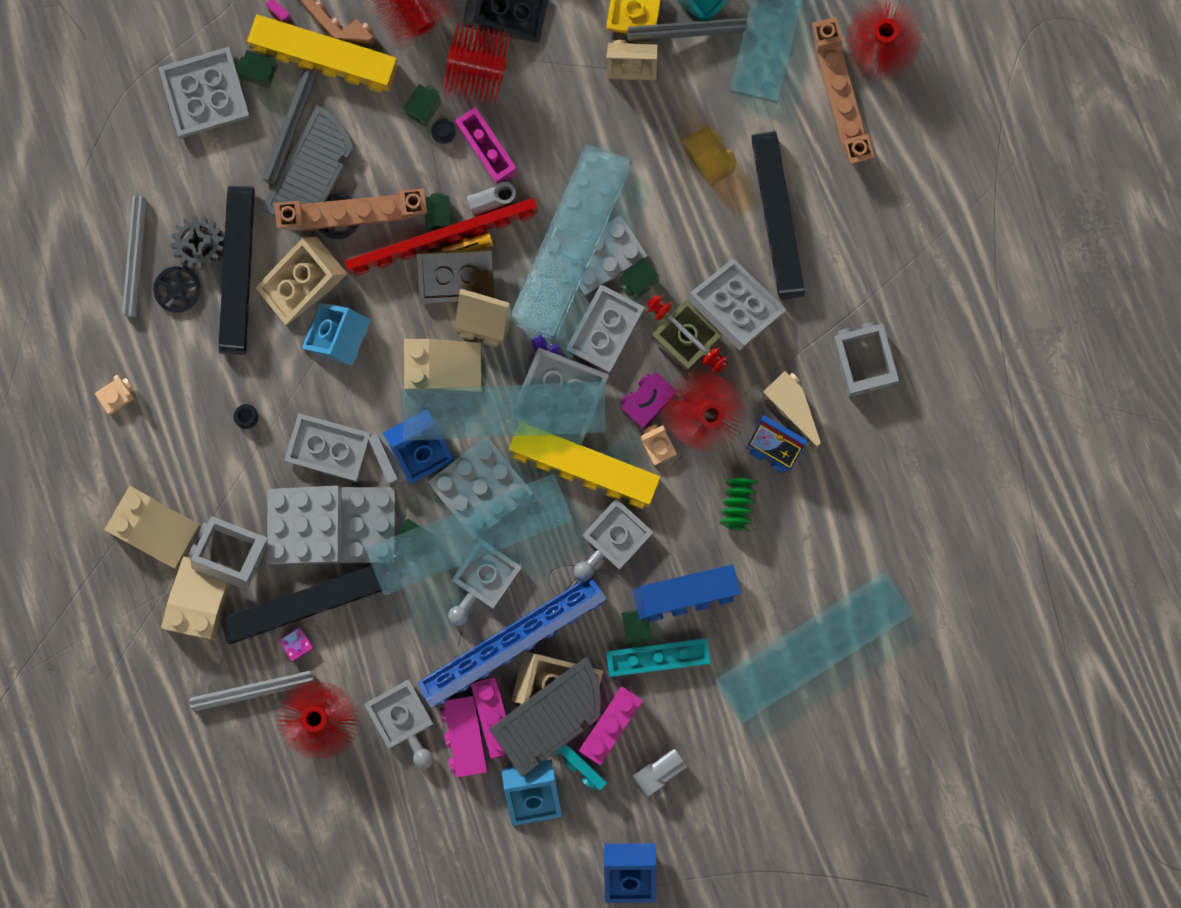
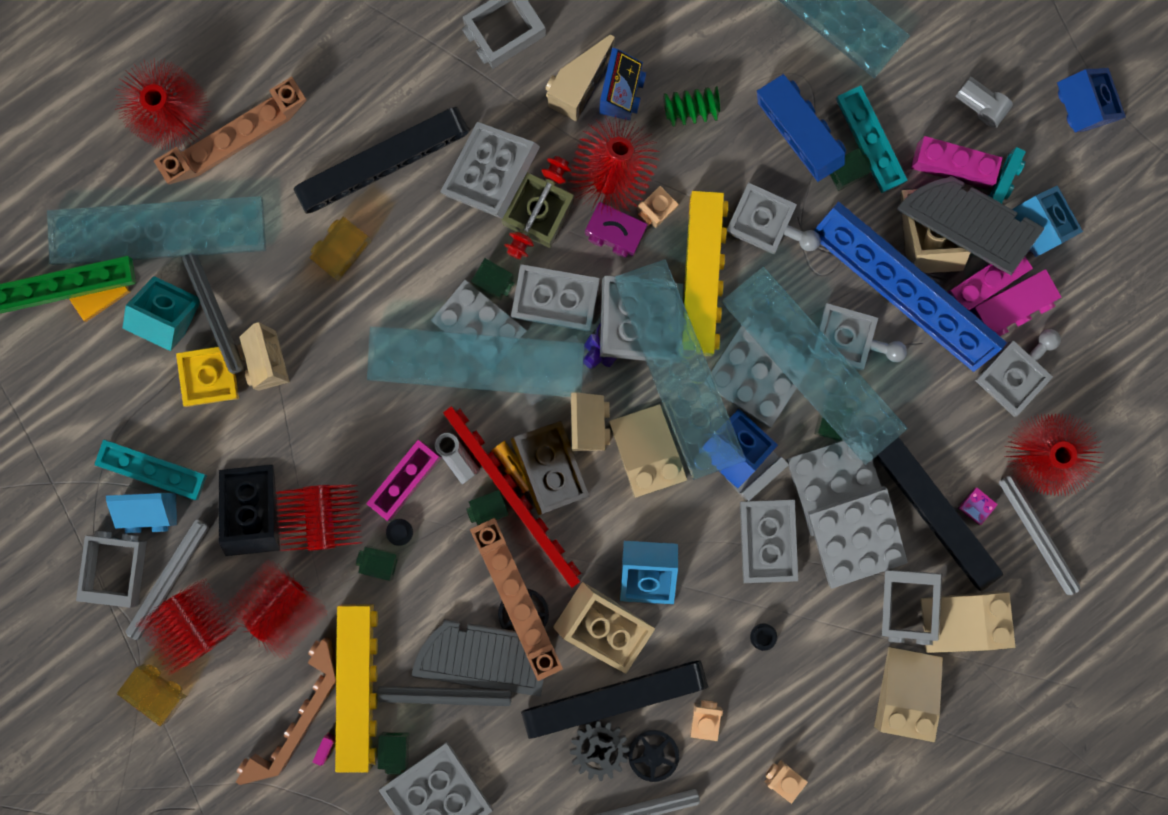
camera: 115 degrees left, 5 degrees up
(191, 343) = (706, 720): none -> light nougat bracket

